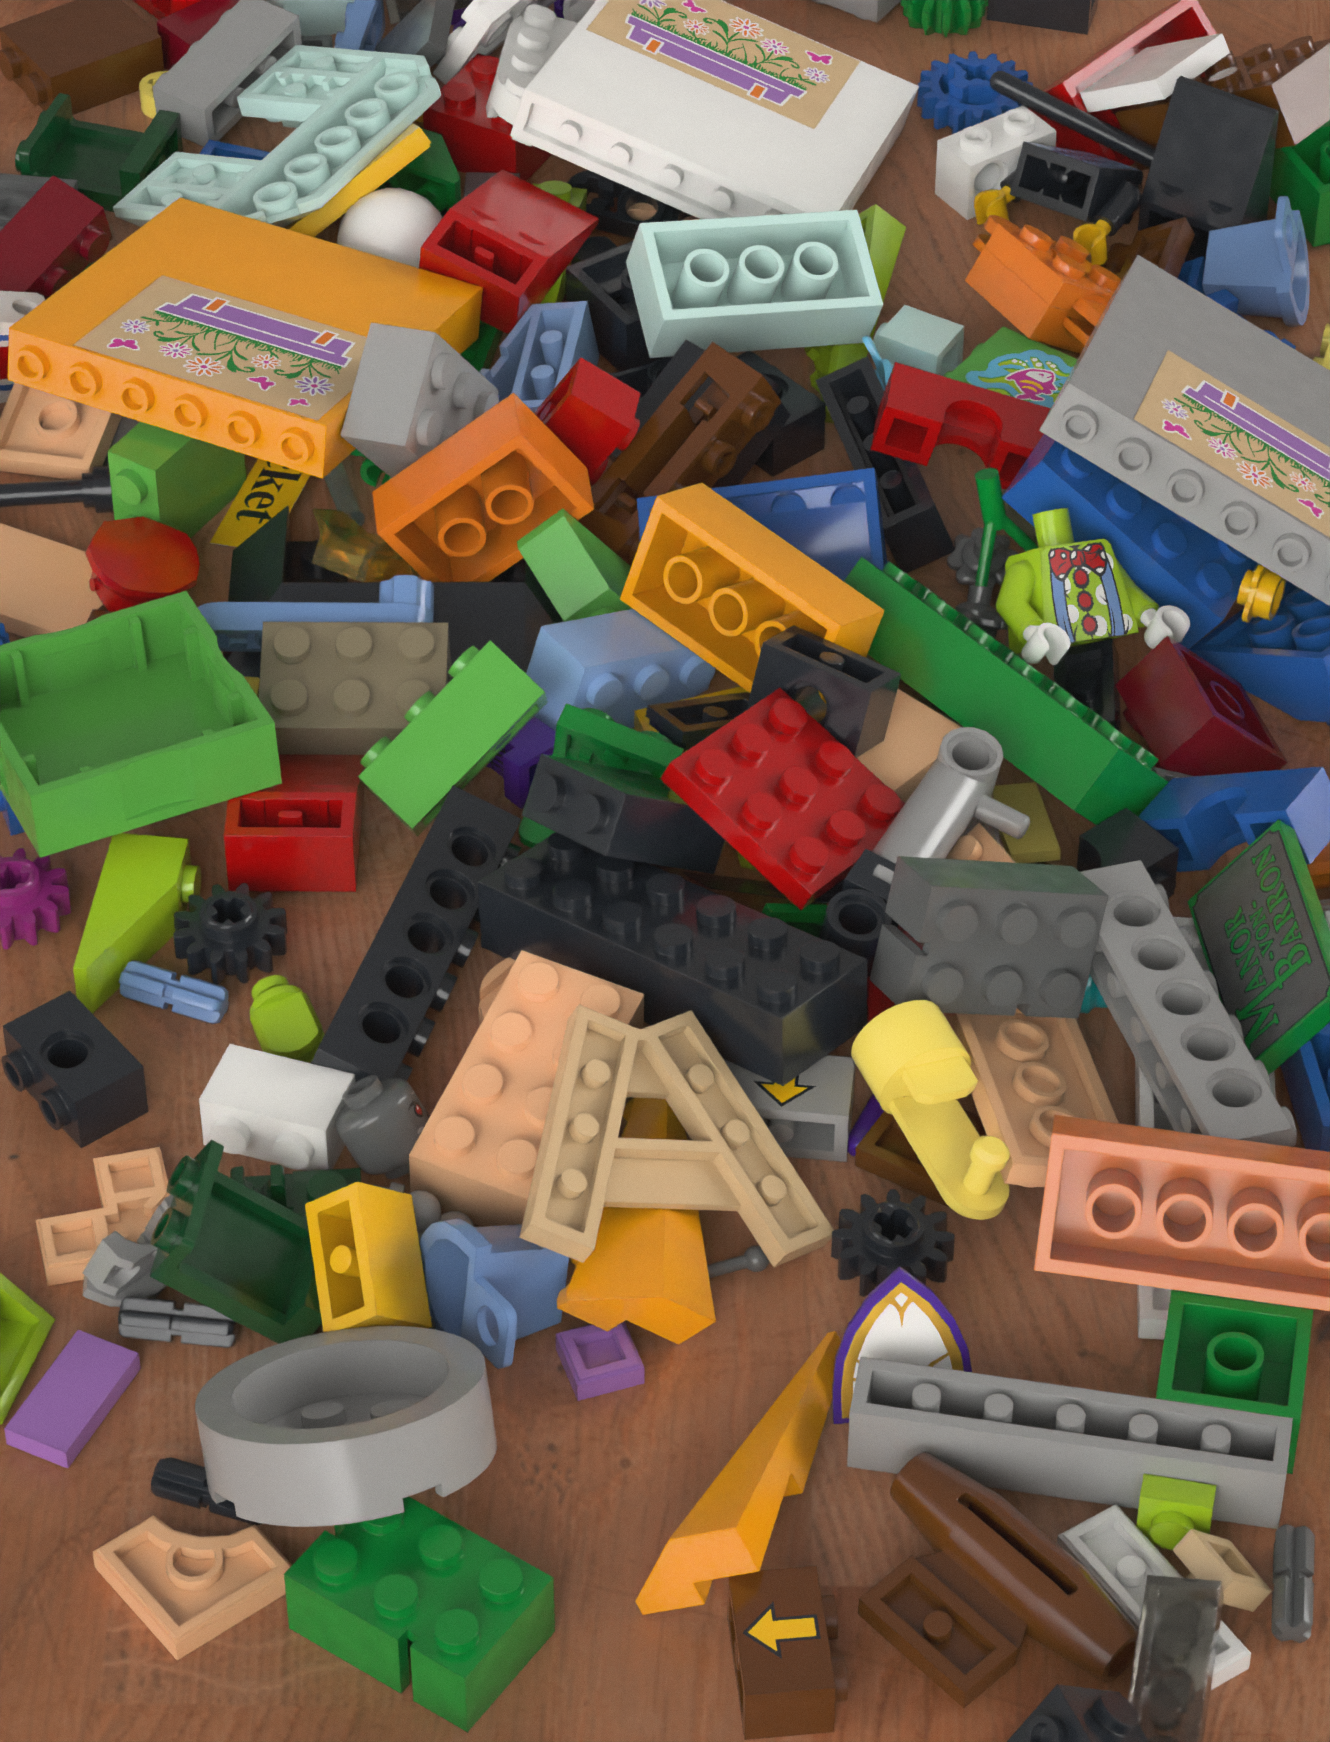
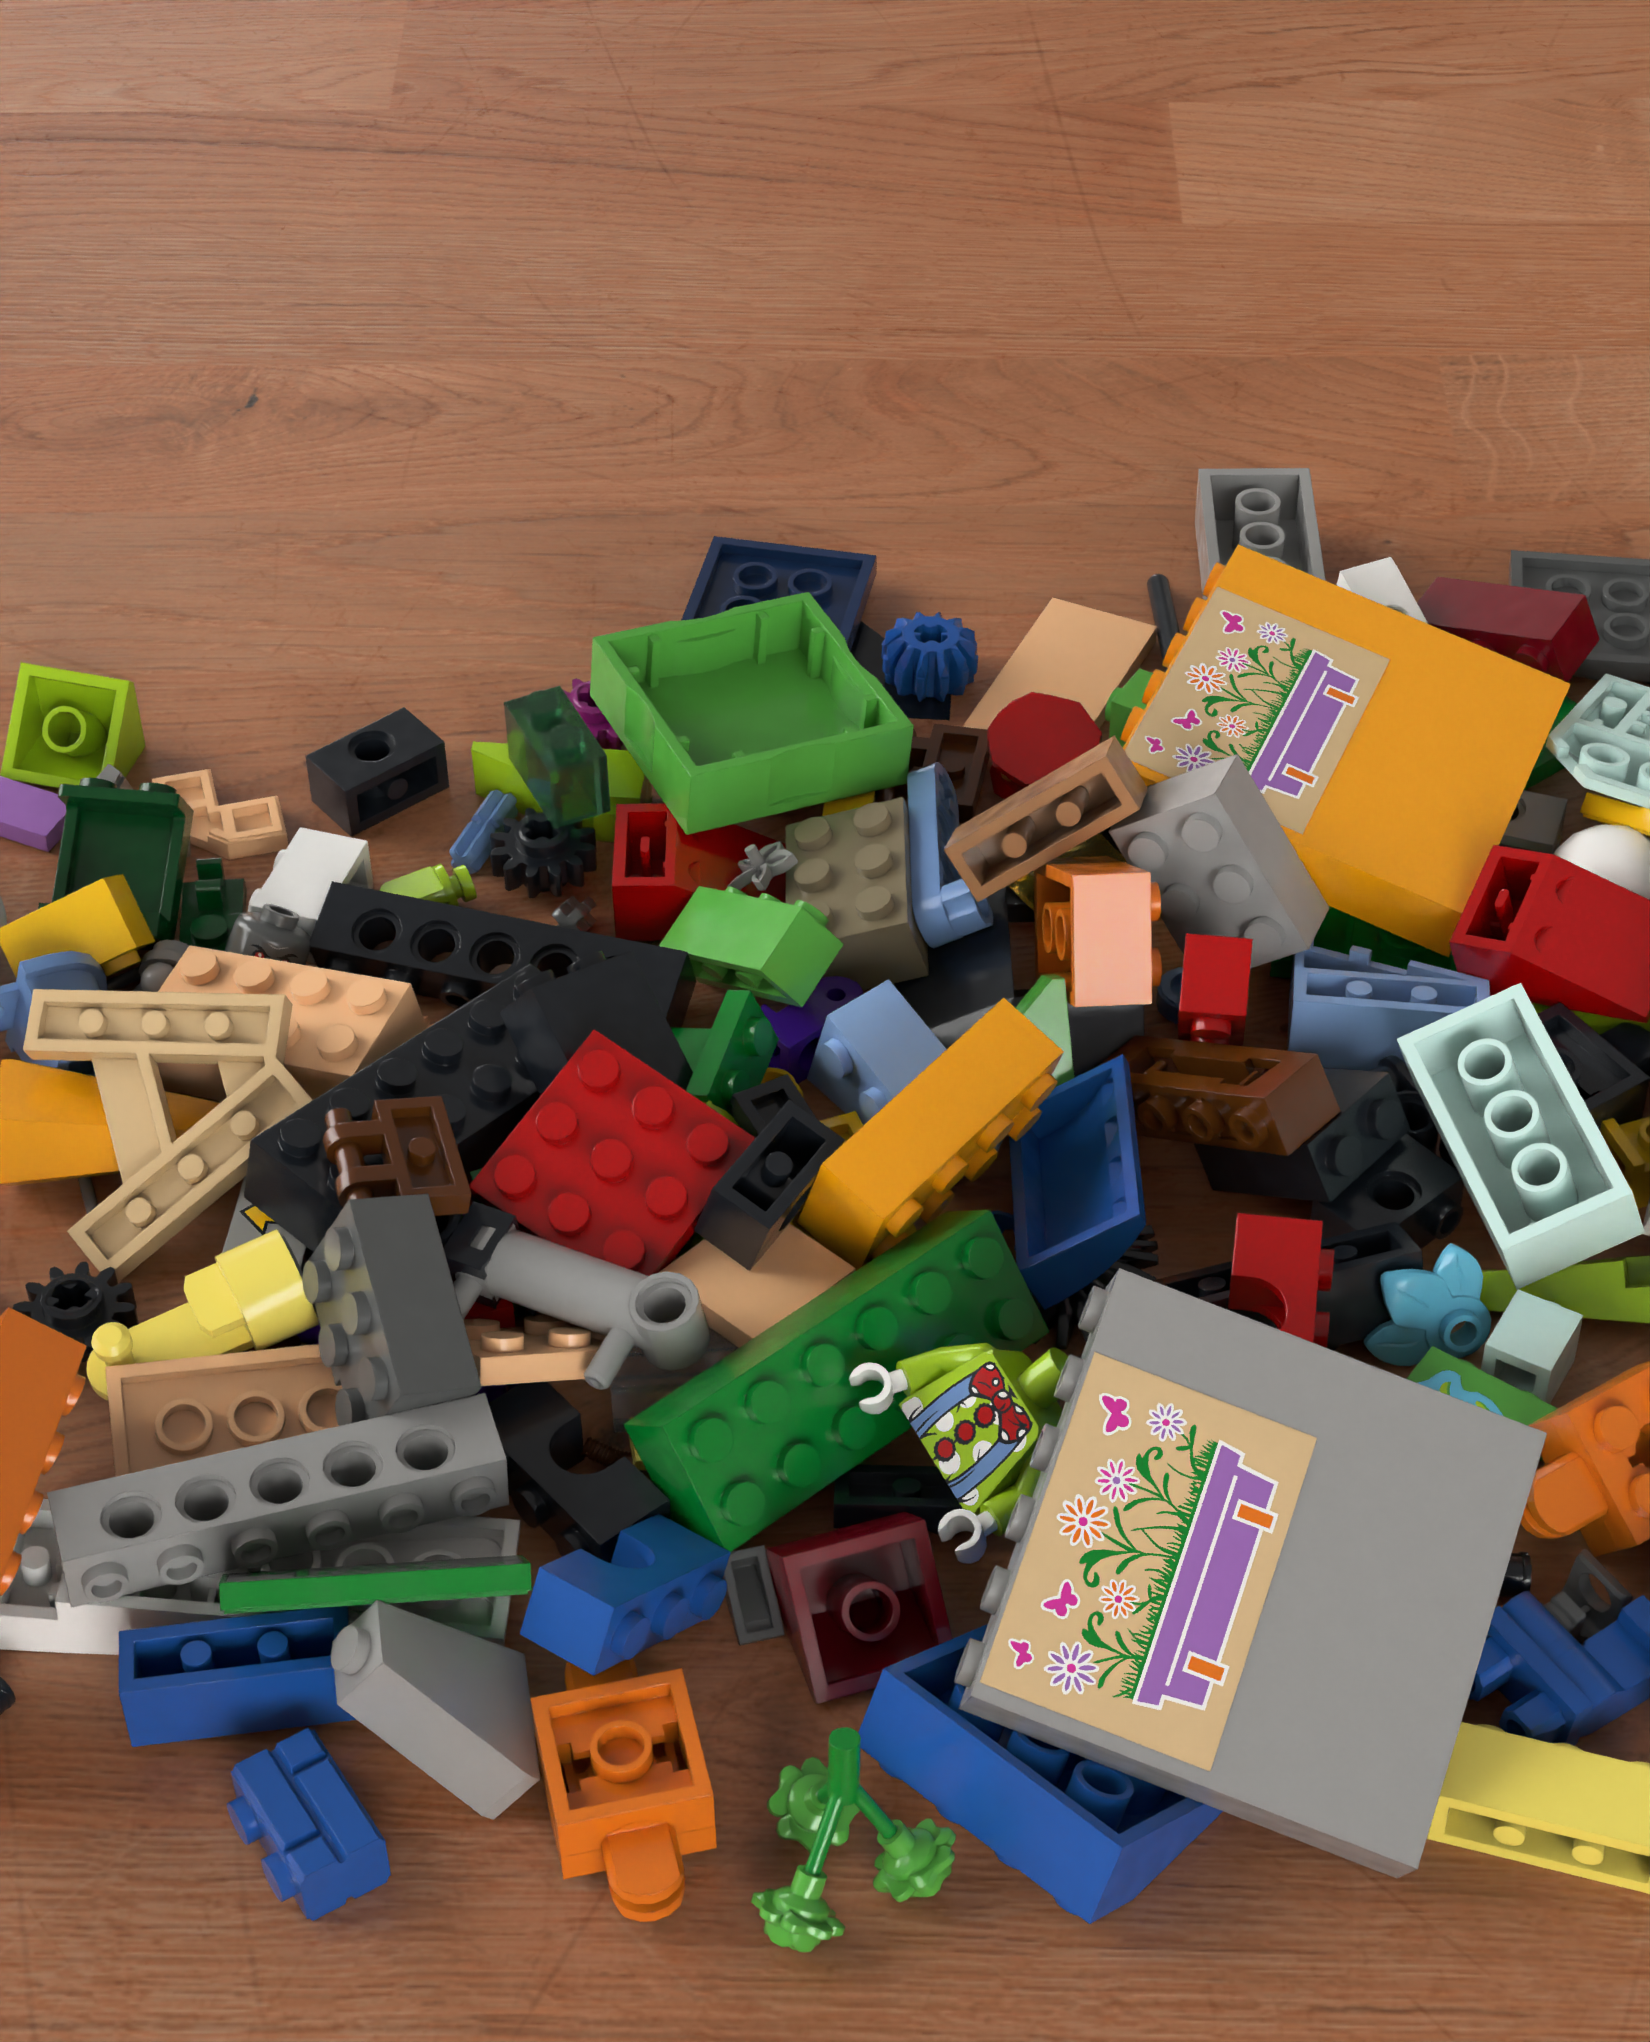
camera: 90 degrees right, 0 degrees up
(154, 870) = (557, 756): none -> clear green brick
(326, 739) = (763, 865): none -> light grey plant
(358, 896) = (575, 914): none -> dark grey piece
(375, 486) = (1046, 819): none -> medium nougat brick
(836, 889) = (415, 1151): none -> reddish brown plate

